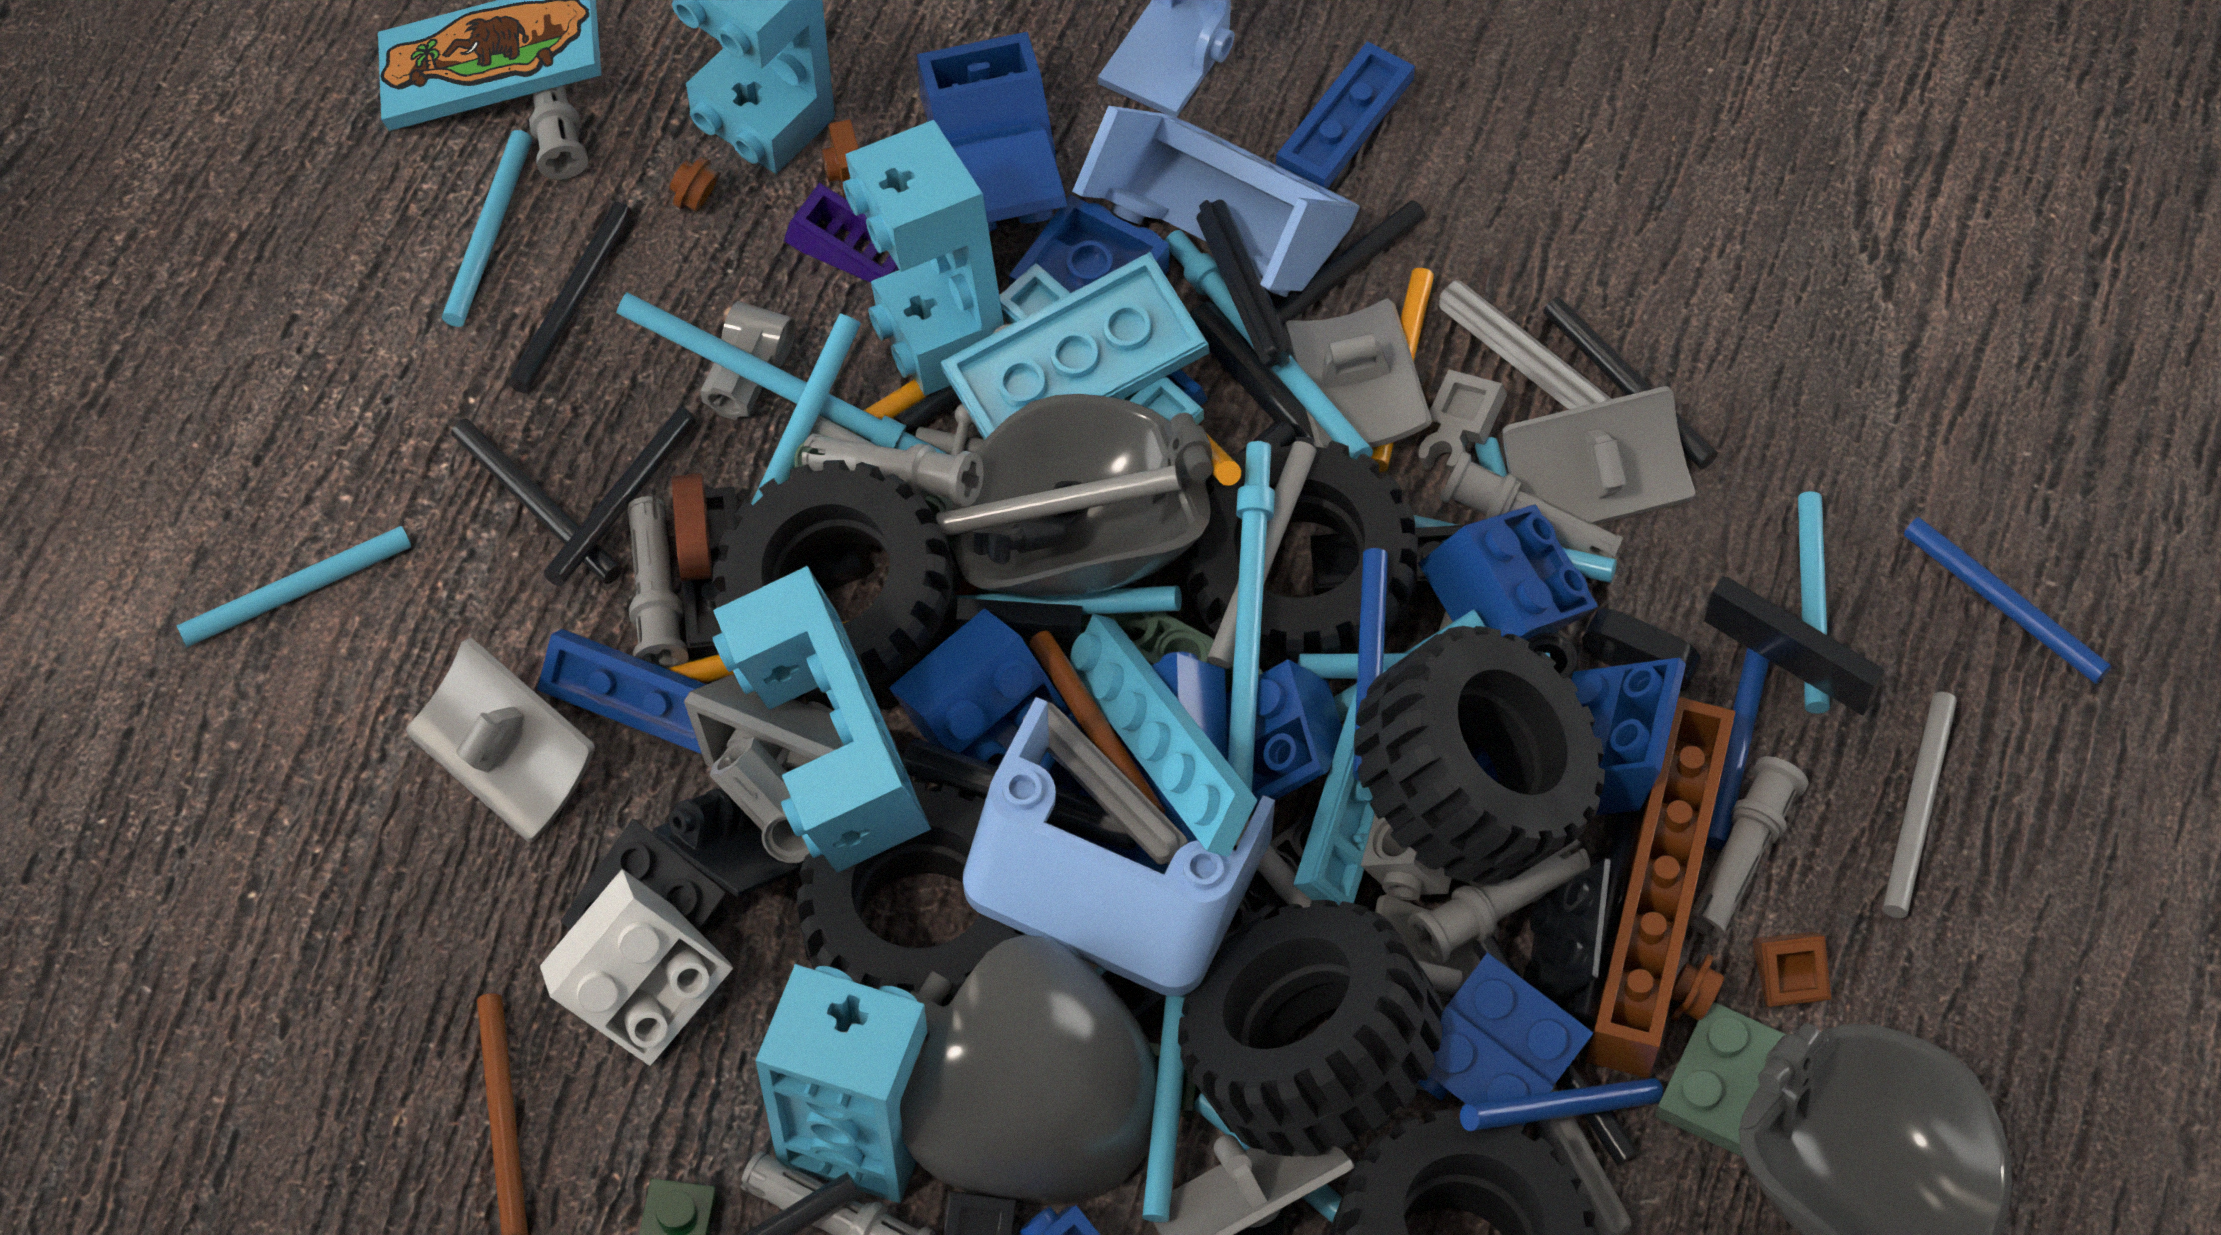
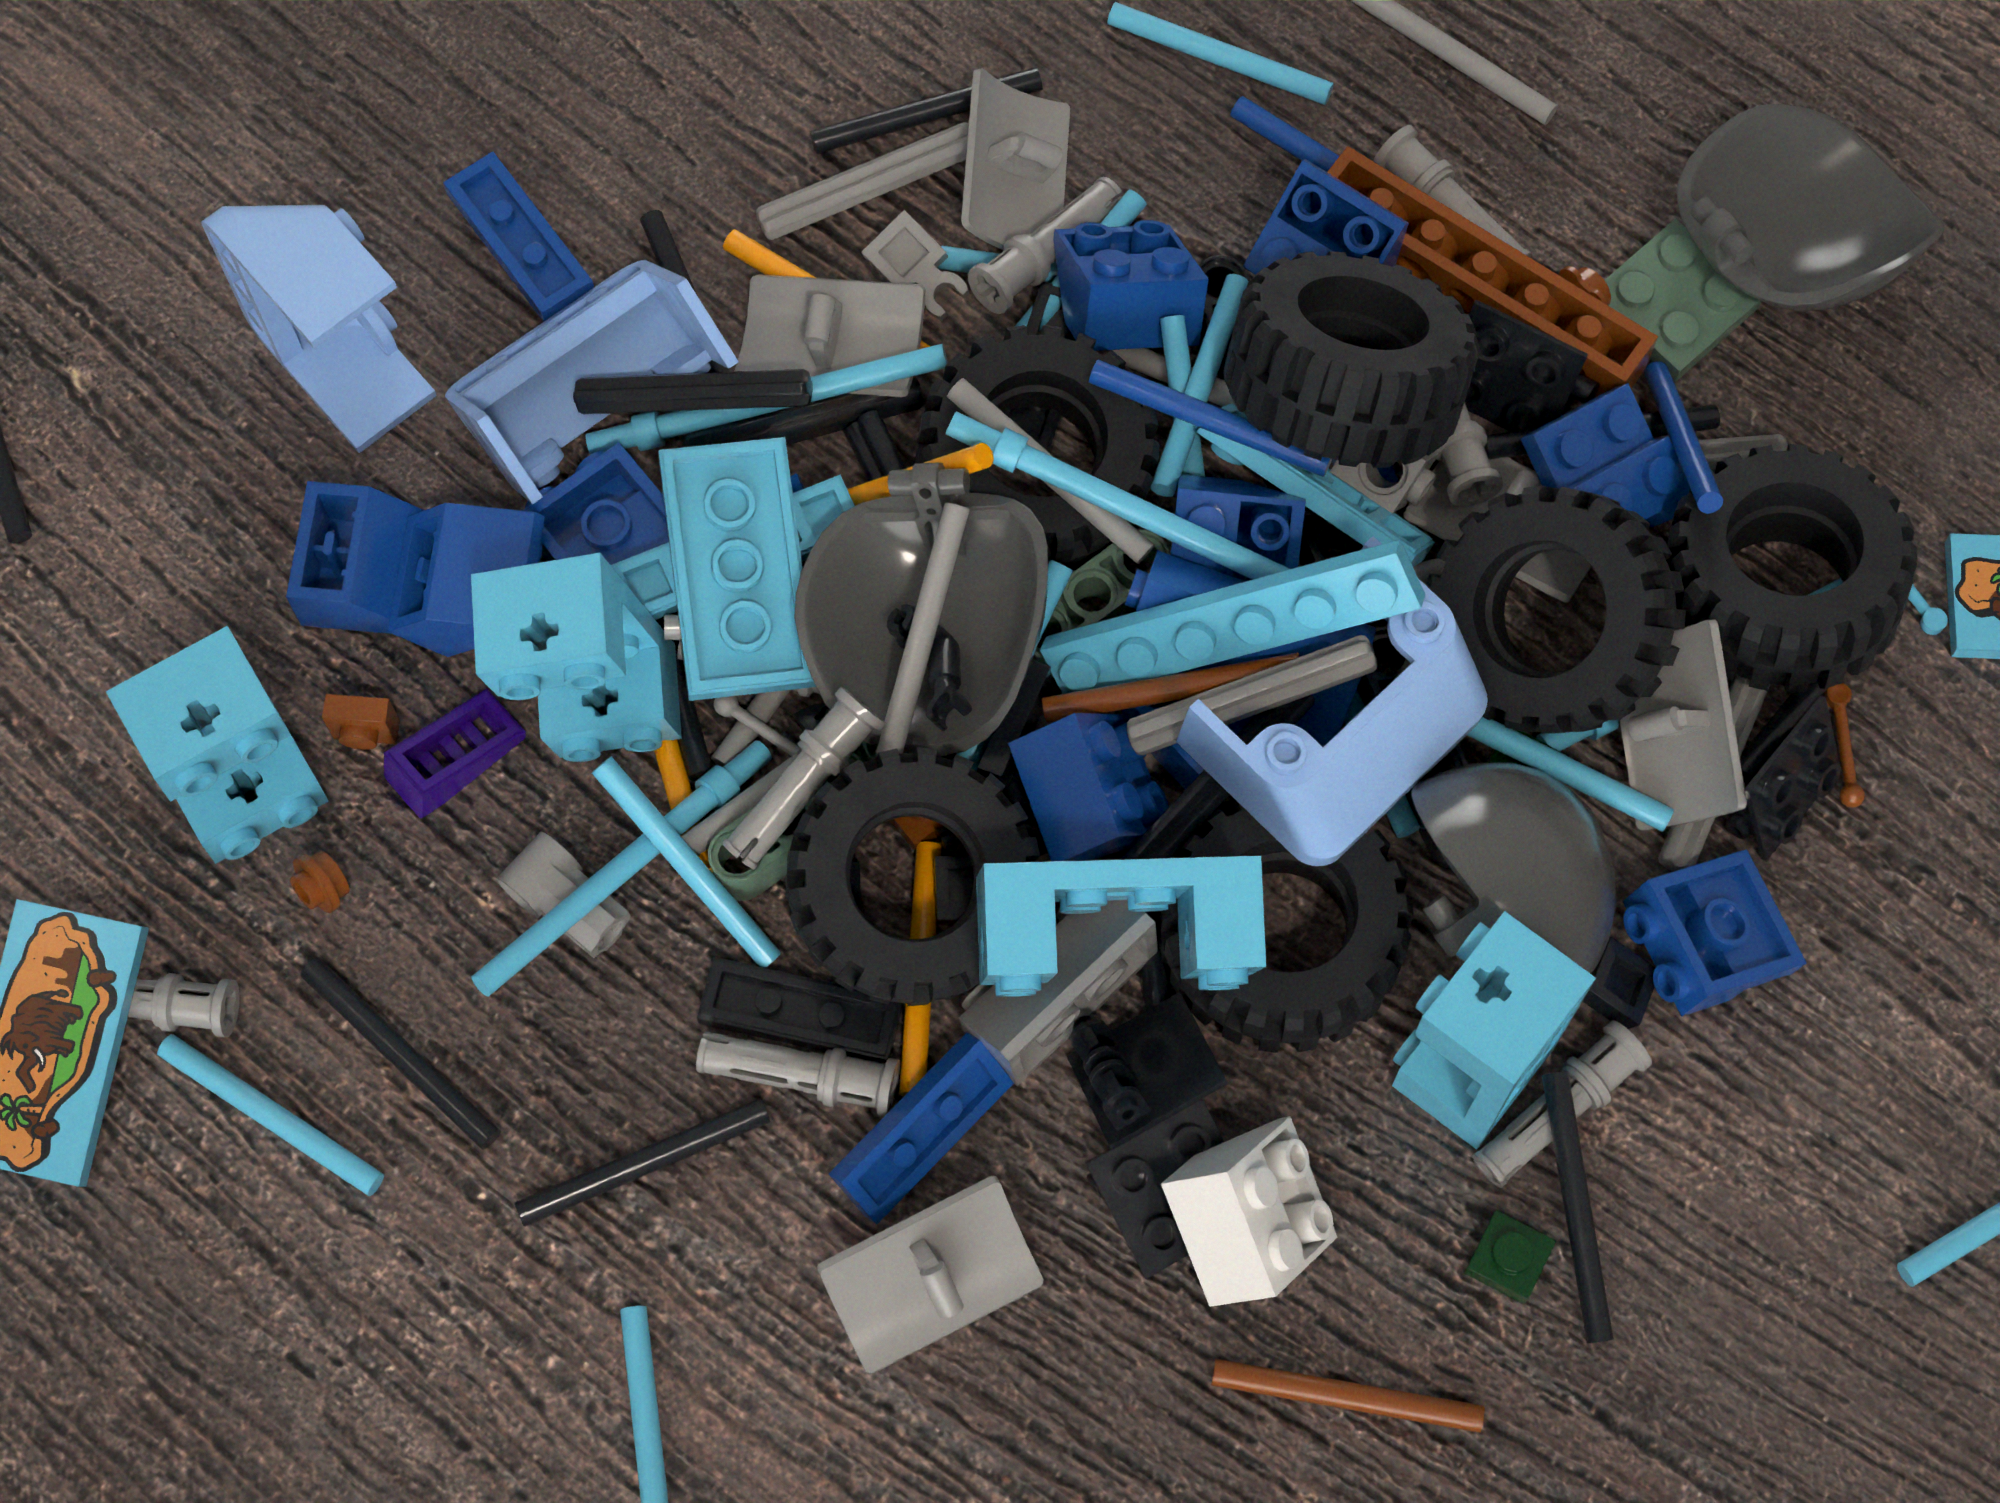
camera: 70 degrees left, 10 degrees up
(619, 497) = (683, 1072): black bar -> none
(691, 527) = (763, 1006): copper beam -> none
(757, 787) = (1129, 1016): light grey piece -> none
(1627, 640) = (1225, 208): black beam -> none
(1793, 645) = (1281, 78): black tile -> none
(1793, 968) = (1574, 215): dark orange slope -> none

